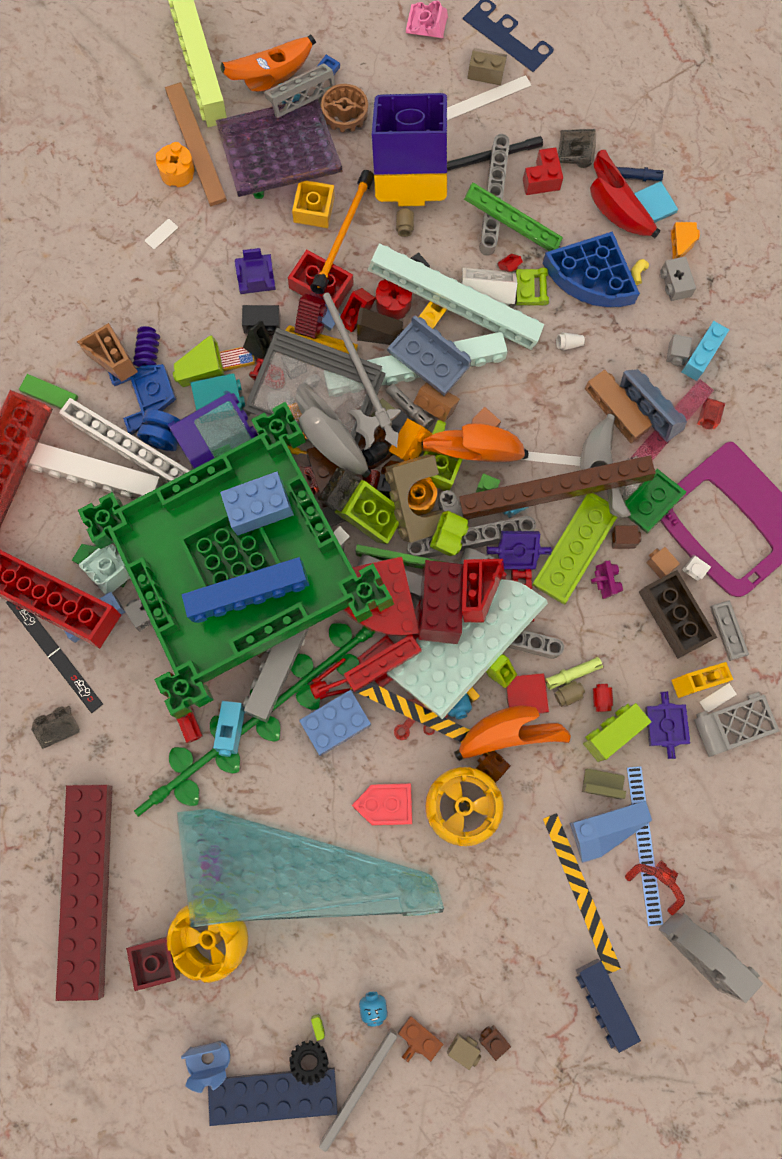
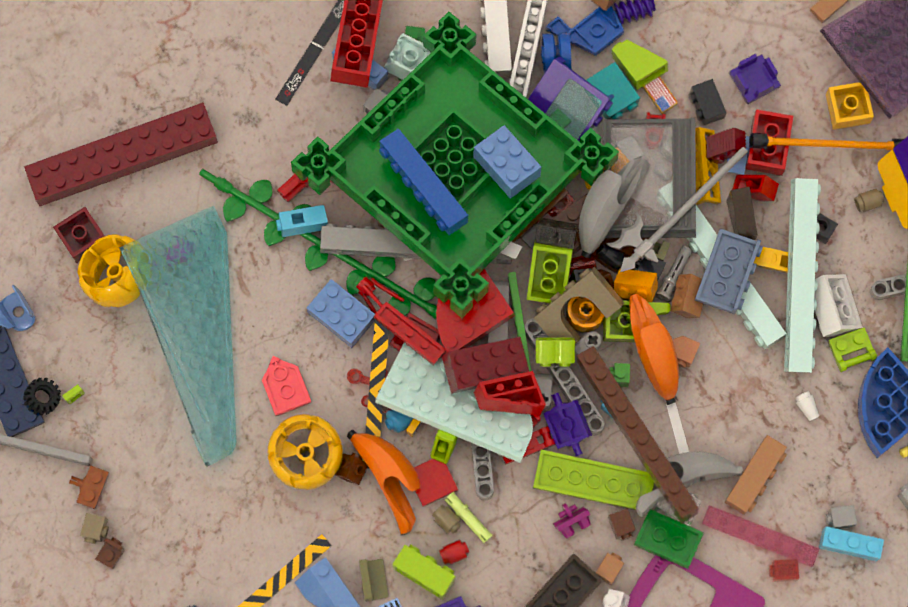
camera: 75 degrees right, 0 degrees up
(54, 727) = (251, 72): clear smoke bracket -> none
(257, 340) = (682, 106): pearl dark grey slope -> none
(373, 1009) = (103, 436): dark azure head -> none
(392, 300) = (769, 221): red brick -> none
(510, 262) = (868, 318): red plate -> none
(651, 402) = (769, 506): sand blue slope -> none

